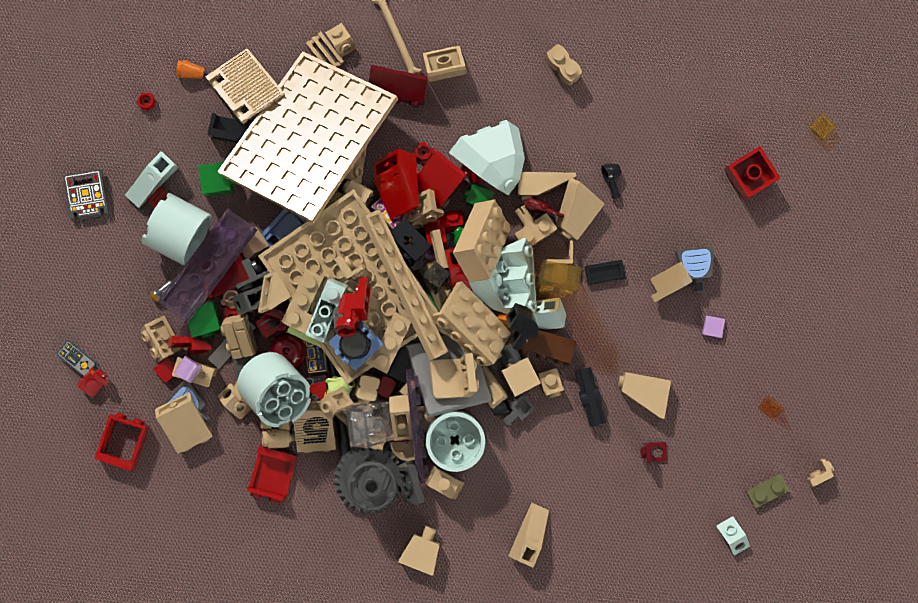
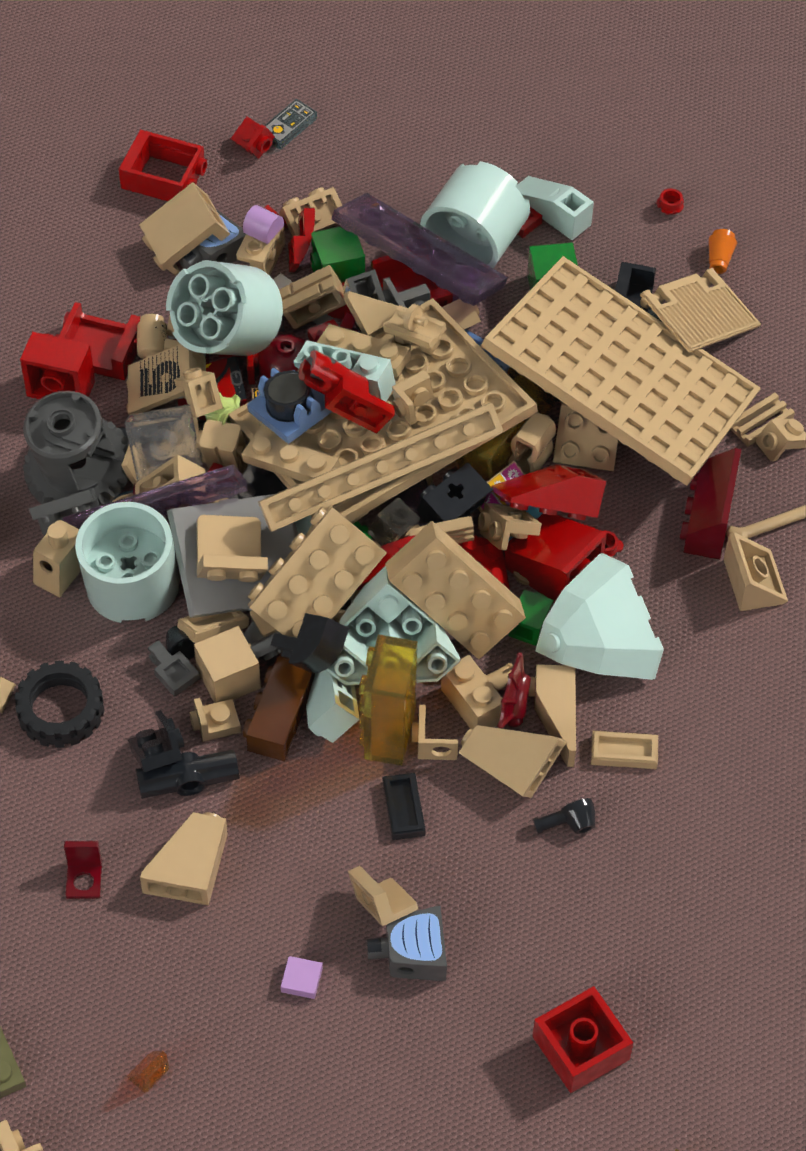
camera: 90 degrees right, 30 degrees down
(86, 198) = (522, 135): dark grey container -> none
(293, 265) = (415, 327): none -> tan hips
(303, 497) = (56, 365): none -> red brick
(541, 495) = (51, 676): none -> black tyre
(564, 145) = (624, 749): none -> tan tile
(567, 68) = (764, 743): tan brick -> none
(578, 415) = (159, 746): none -> black bracket

